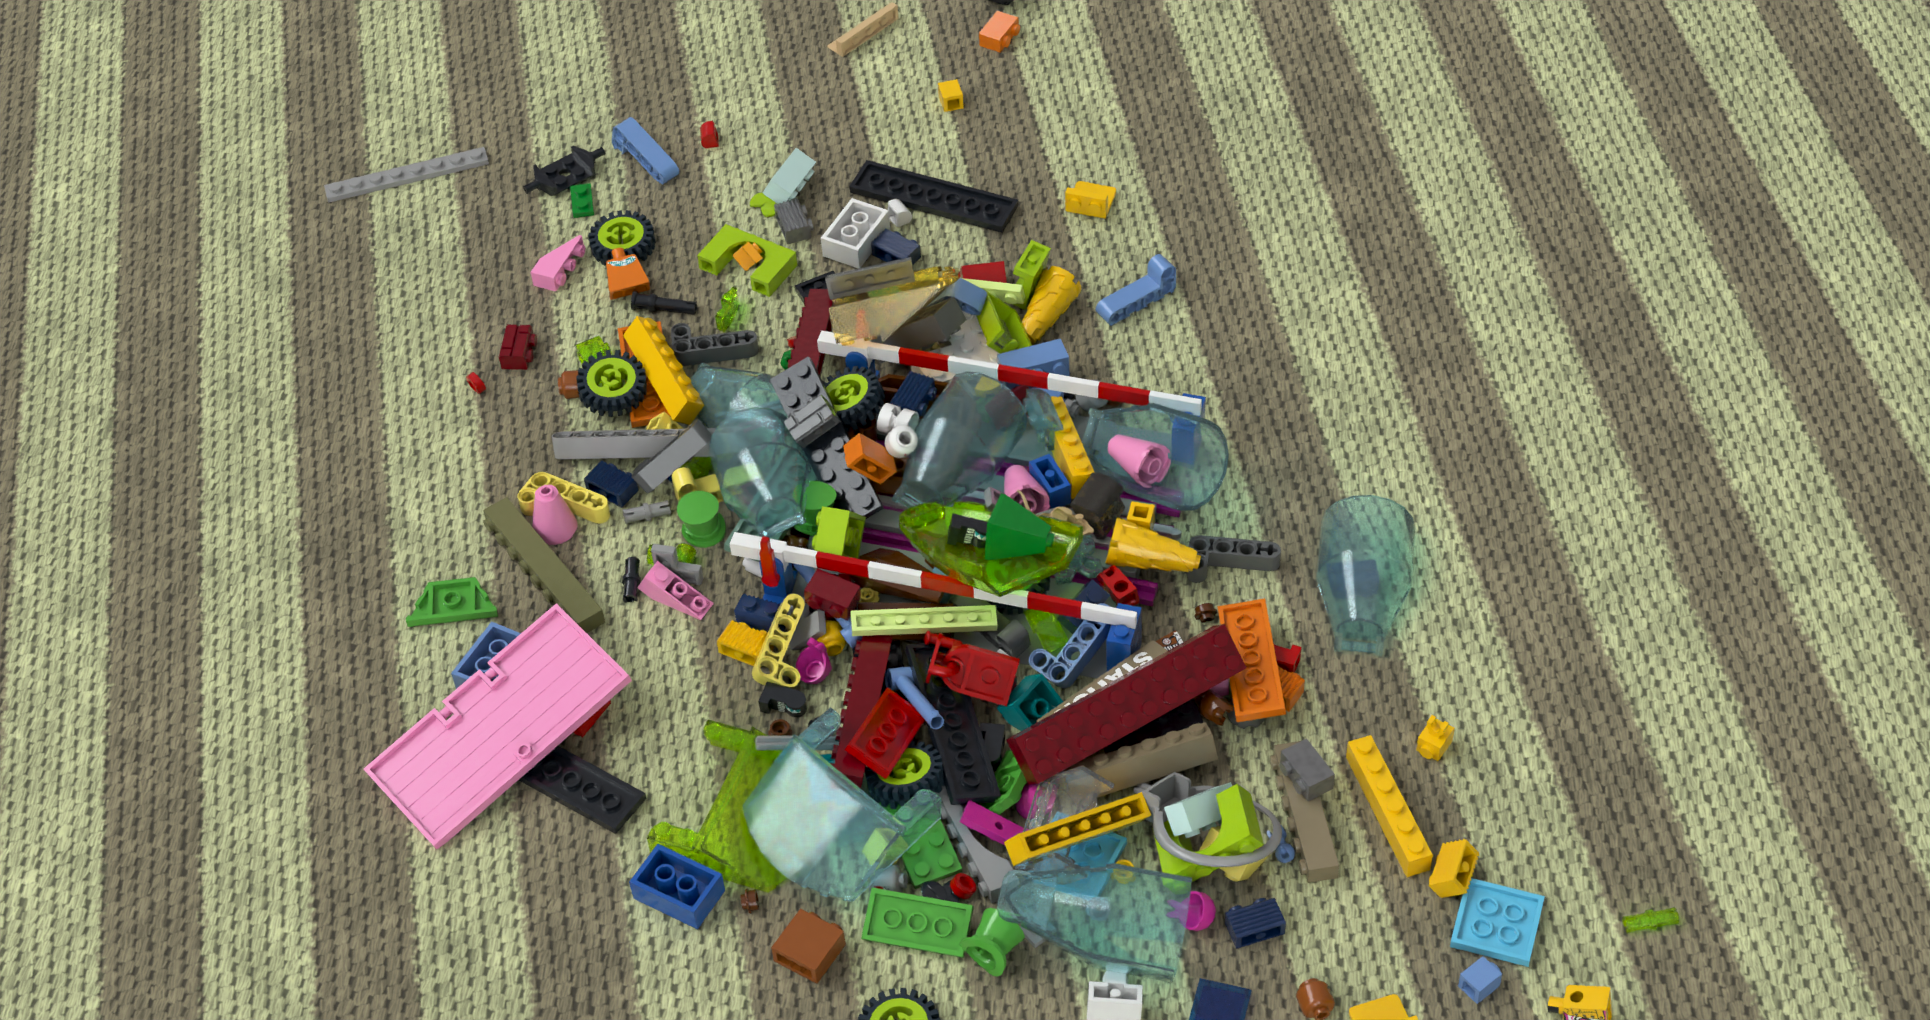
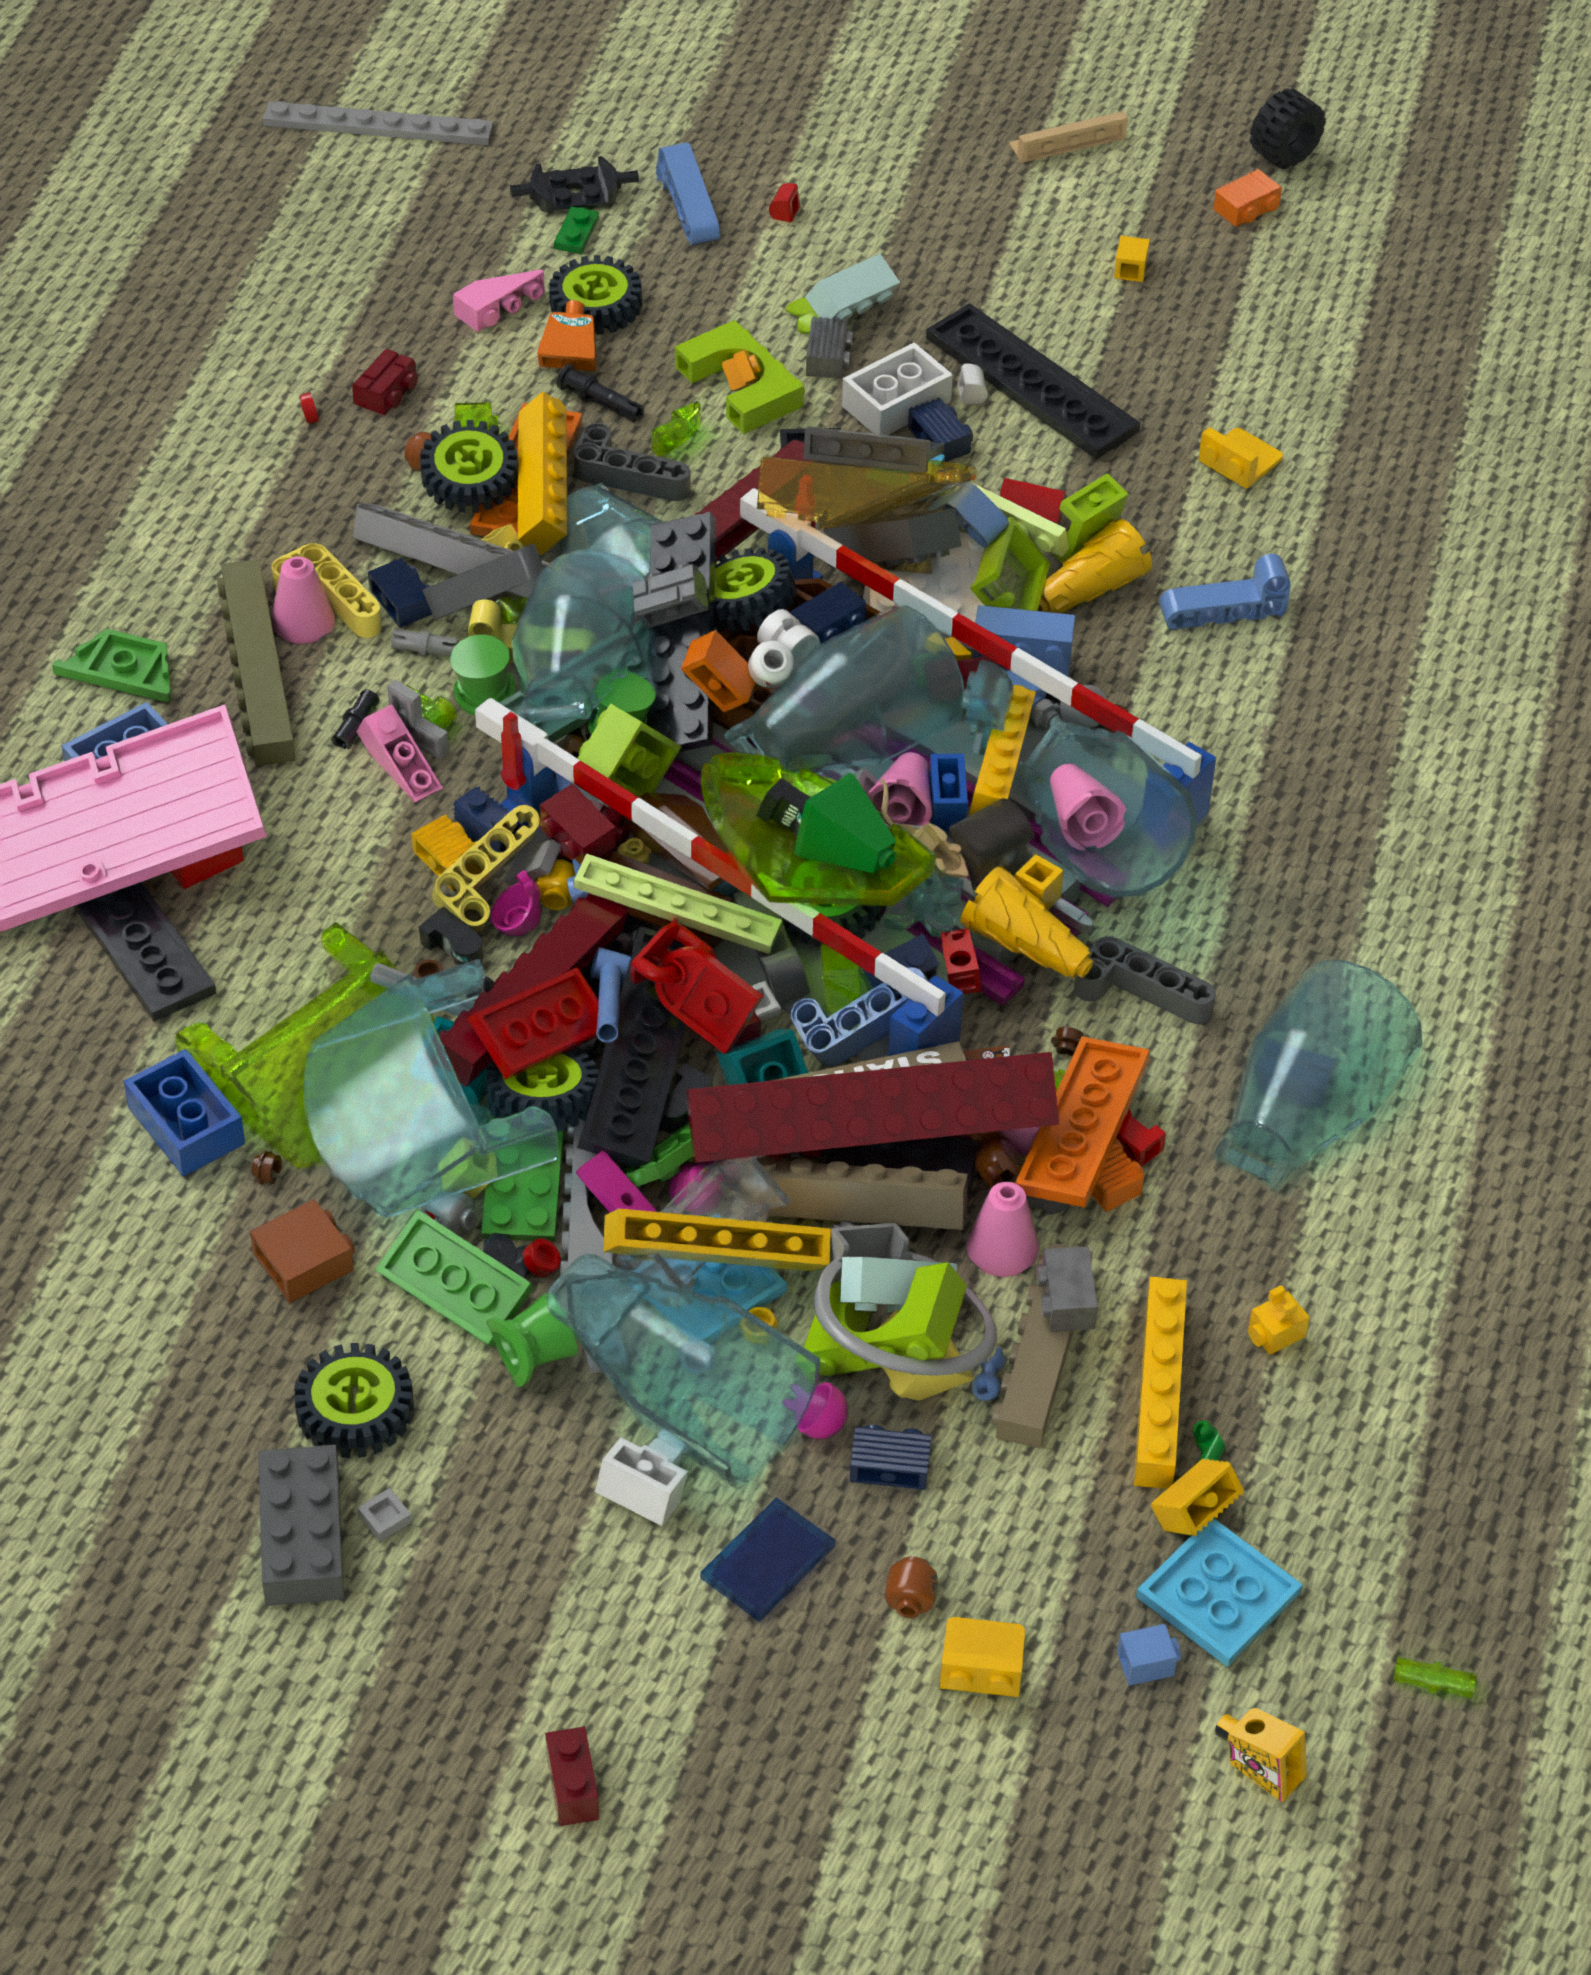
camera: 20 degrees right, 0 degrees up
(1241, 751) = (1004, 1233): none -> bright pink cone
(1436, 831) = (1208, 1441): none -> green arm

